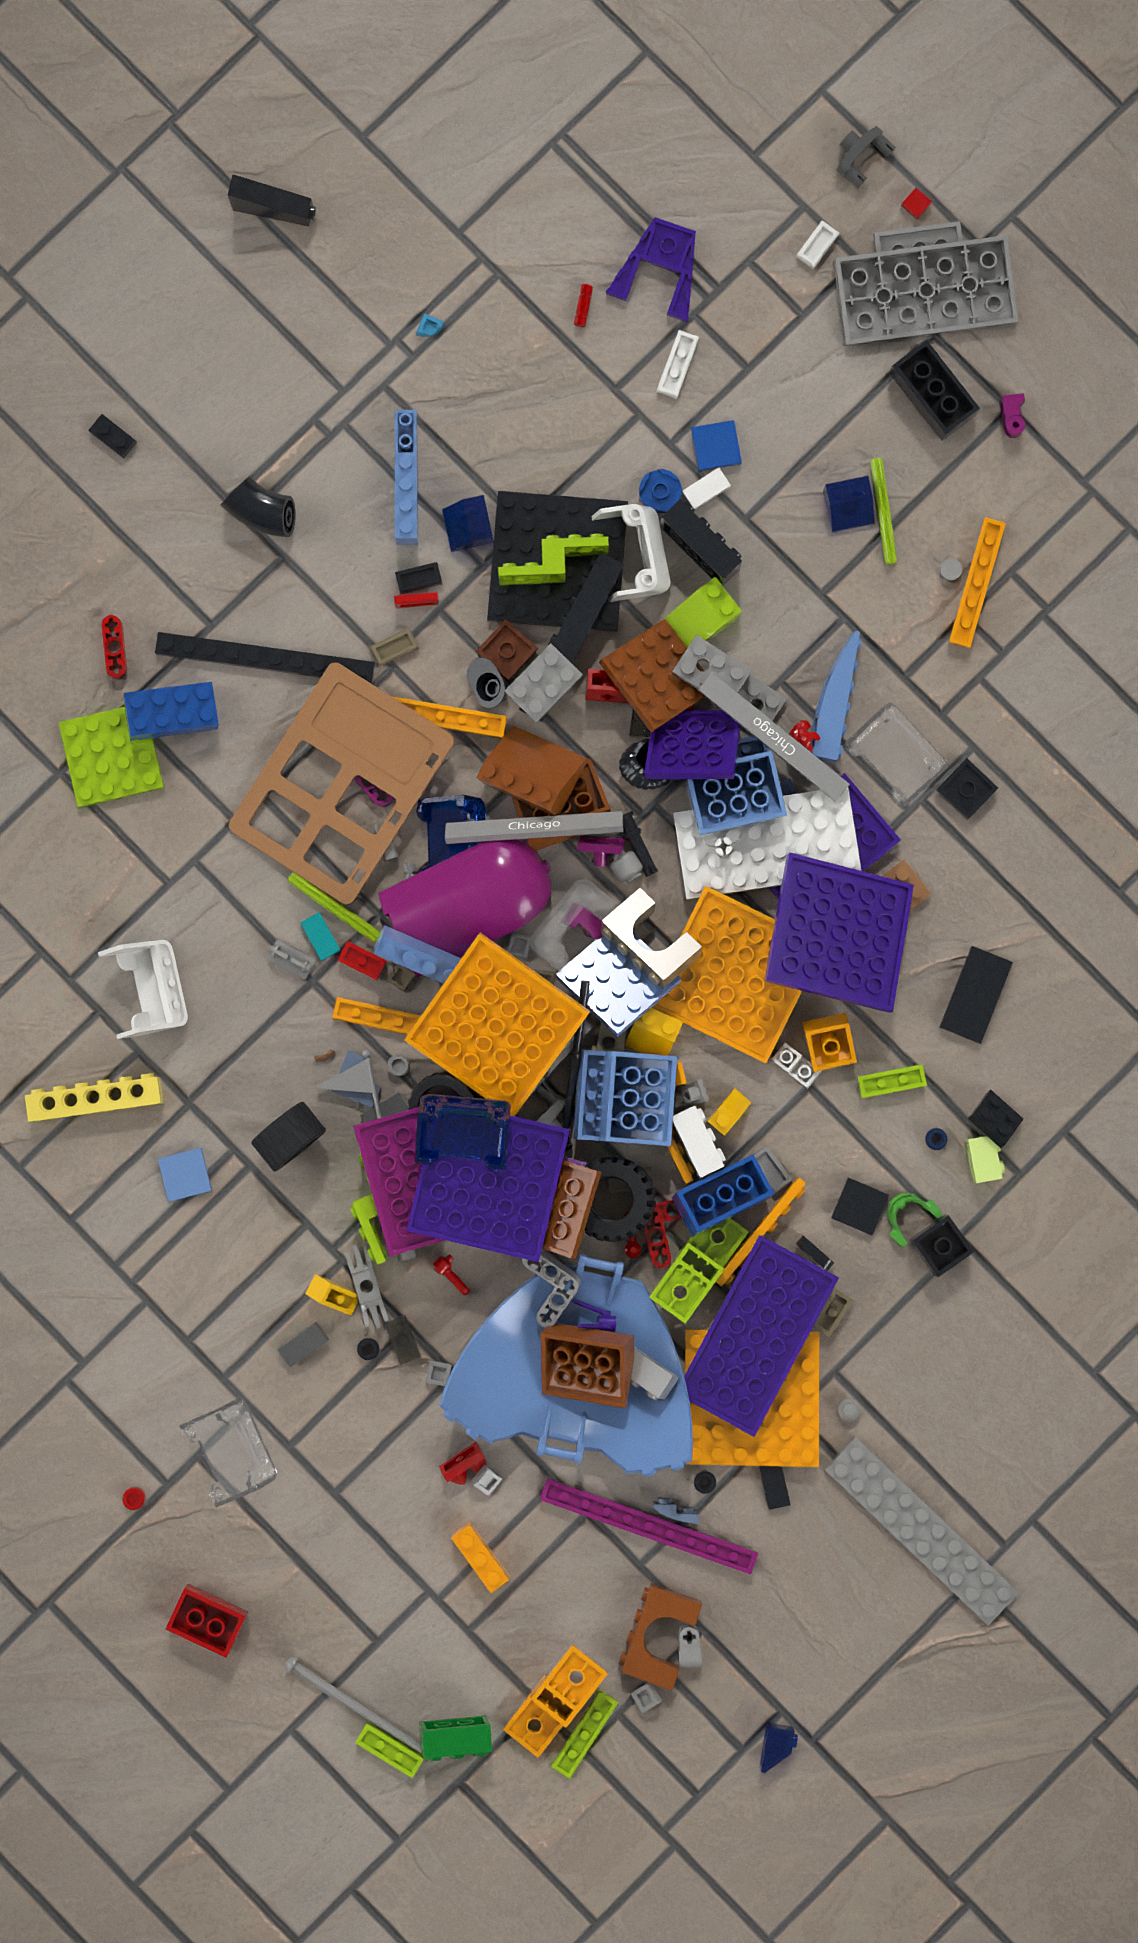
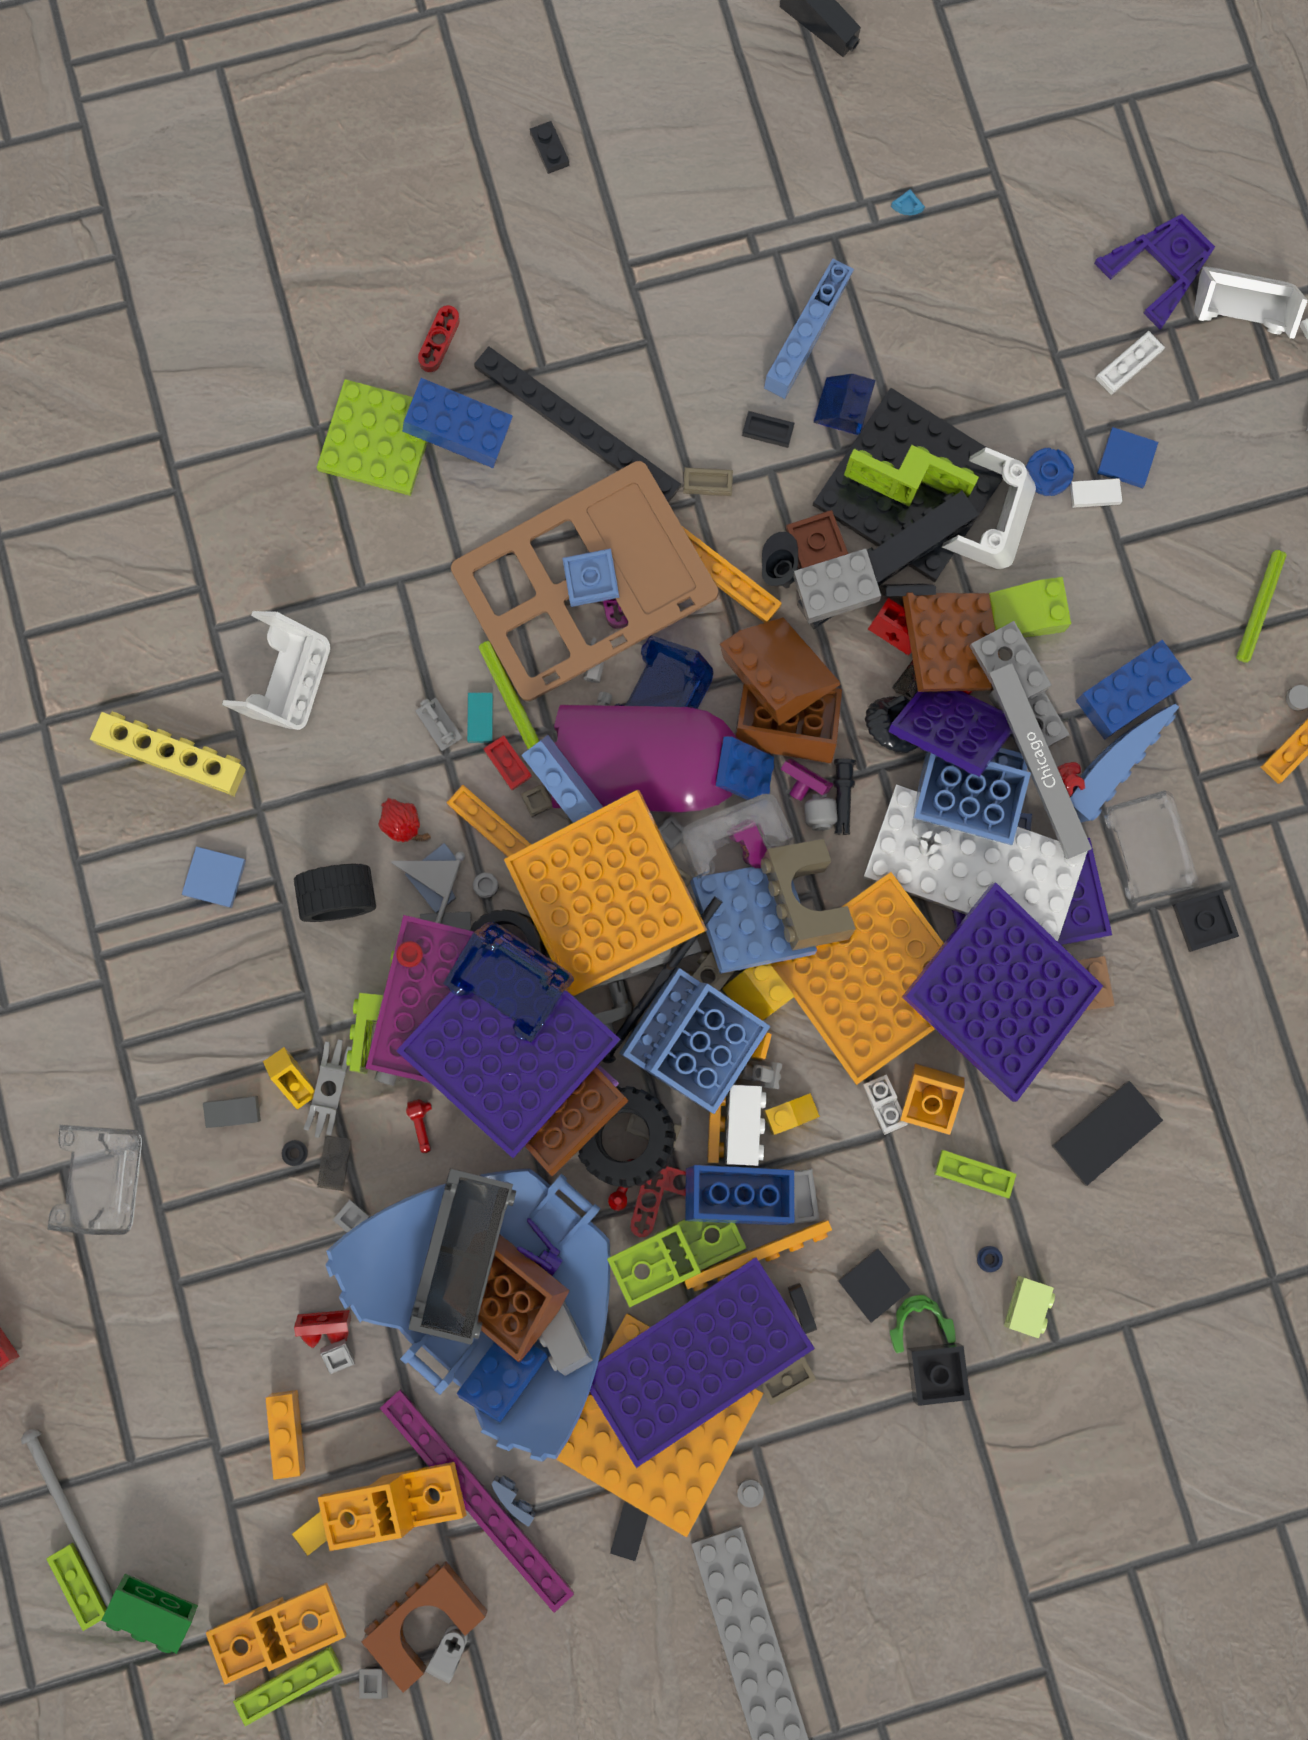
camera: 25 degrees right, 5 degrees down
(261, 509) = (652, 281): black brick -> none
(304, 1052) = (399, 820): none -> red hair
(346, 779) = (590, 577): none -> medium blue tile
(375, 1153) = (409, 954): none -> red tile
(416, 600) = (754, 447): red tile -> none
(534, 827) = (751, 720): light grey tile -> none
(538, 1354) = (460, 1256): none -> clear smoke windscreen
(545, 1608) = (312, 1533): none -> yellow slope
(550, 867) = (744, 769): none -> blue plate
(559, 1281) = (523, 1189): light grey beam -> none
(583, 305) = (1067, 261): red axle -> none
(589, 1564) = (391, 1506): none -> light orange bracket
(595, 654) = (902, 589): none -> black tile
(618, 1429) = (500, 1380): none -> blue plate
(700, 542) = (1064, 536): black brick -> none
(705, 1489) = (559, 1494): black plate -> none
(744, 258) = (1249, 298): none -> white windscreen
(817, 635) = (1133, 689): none -> blue brick
(849, 503) = (1232, 579): clear blue slope -> none
(995, 1118) = (1063, 1272): black plate -> none

